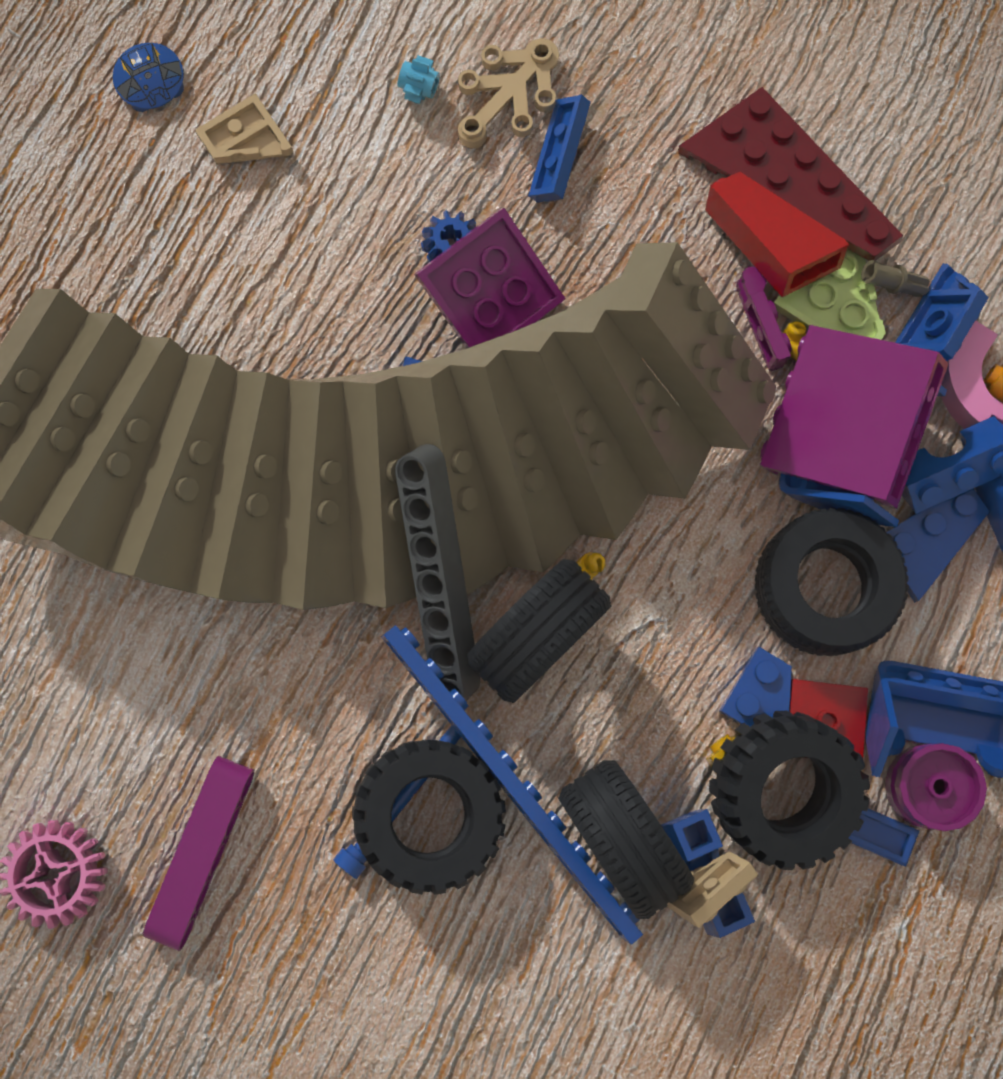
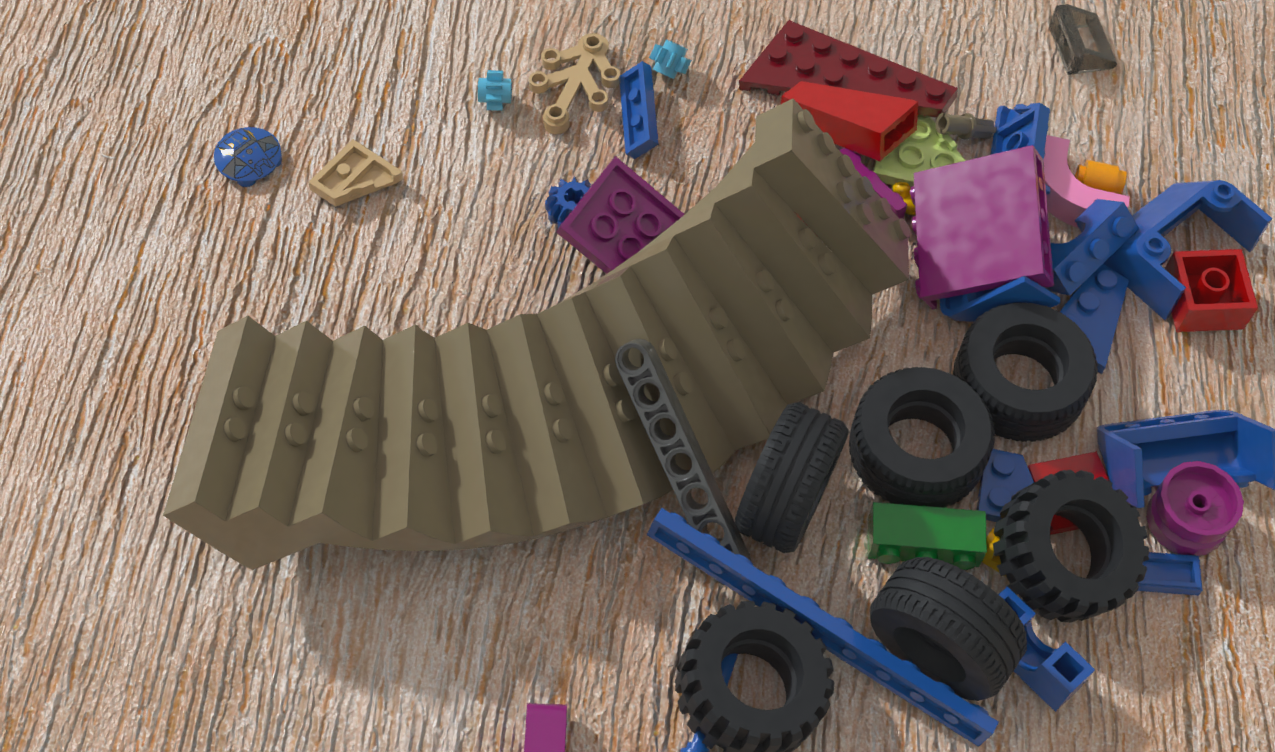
camera: 20 degrees left, 20 degrees down
(615, 98) = (670, 59): none -> medium azure gear
(658, 720) = (914, 531): none -> green brick
(713, 888) = (1044, 648): tan wing -> none
(735, 589) = (930, 397): none -> black tyre

